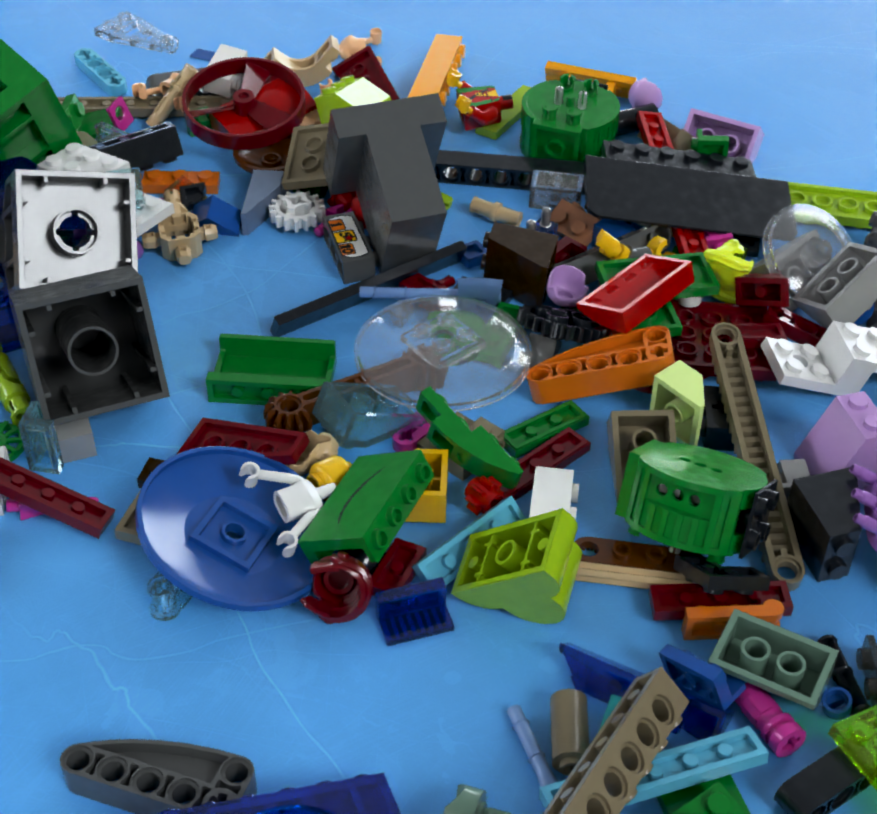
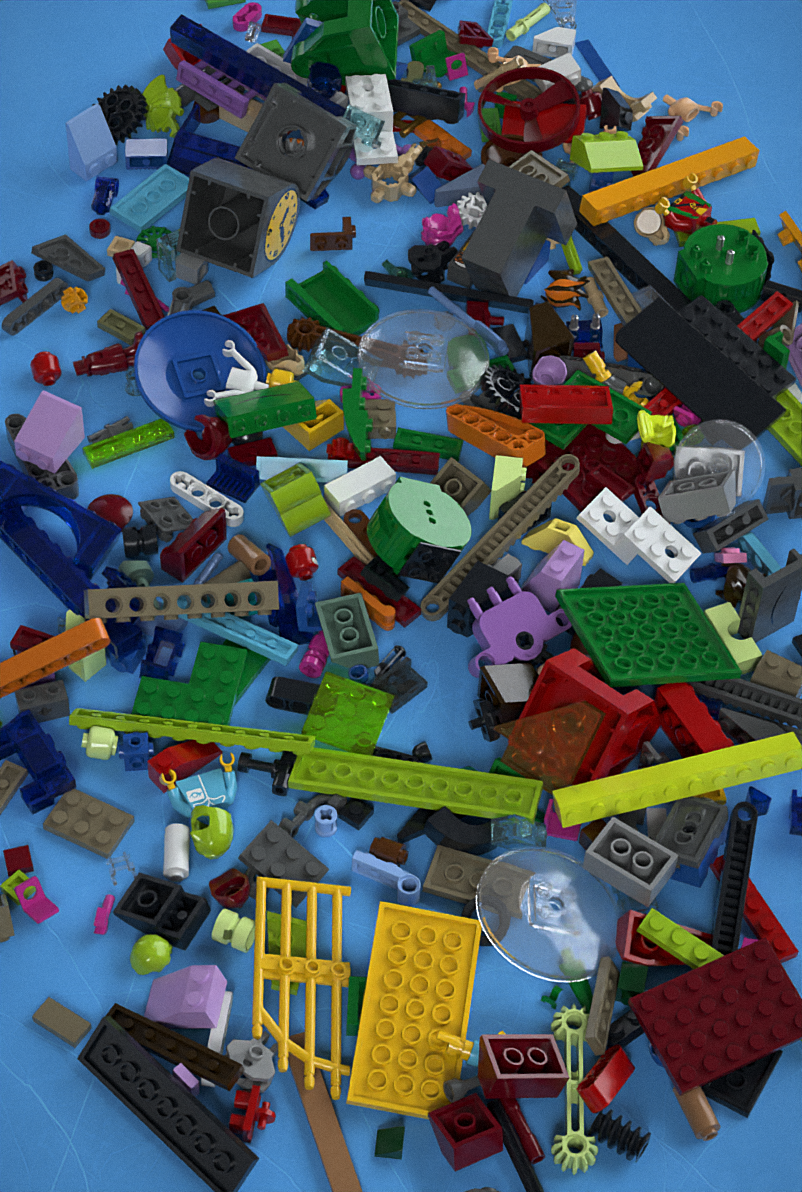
camera: 45 degrees right, 10 degrees up
(31, 667) = (45, 368): none -> red head
(68, 554) = (119, 326): none -> olive plate
(96, 89) = (473, 34): none -> dark red wing
(105, 591) = (108, 360): none -> dark red piece
(110, 473) = (186, 298): none -> dark grey piece
(131, 67) = (522, 25): none -> yellowish green pin
(160, 728) = (50, 432): none -> lavender slope
(179, 54) = (555, 42): none -> white slope
(199, 312) = (334, 240): none -> reddish brown bracket
(204, 149) = (492, 119): none -> bright green plate
(206, 677) = (111, 430): none -> dark grey pin
(223, 185) = (446, 163): none -> dark red brick
(242, 673) = (128, 443): none -> clear neon green plate
(292, 244) = (442, 228): none -> dark pink hair
(296, 301) = (397, 271): none -> clear green animal
(311, 71) = (615, 111): none -> black slope
(319, 273) = (431, 260): none -> black hinge
(324, 760) = (113, 508): none -> dark red dish
(400, 712) = (166, 515): none -> dark grey hinge
(414, 664) = (209, 496): none -> white beam
(417, 768) = (140, 540): none -> black wheel
(462, 133) = (651, 226): none -> tan hair
(470, 217) = (565, 289): none -> hair
(481, 716) = (194, 544): none -> dark red slope
(523, 192) = (614, 289): none -> dark tan plate
(553, 674) = (249, 554): none -> medium nougat brick
(611, 636) = (301, 562): none -> red head
(790, 414) = (552, 533): none -> light yellow slope

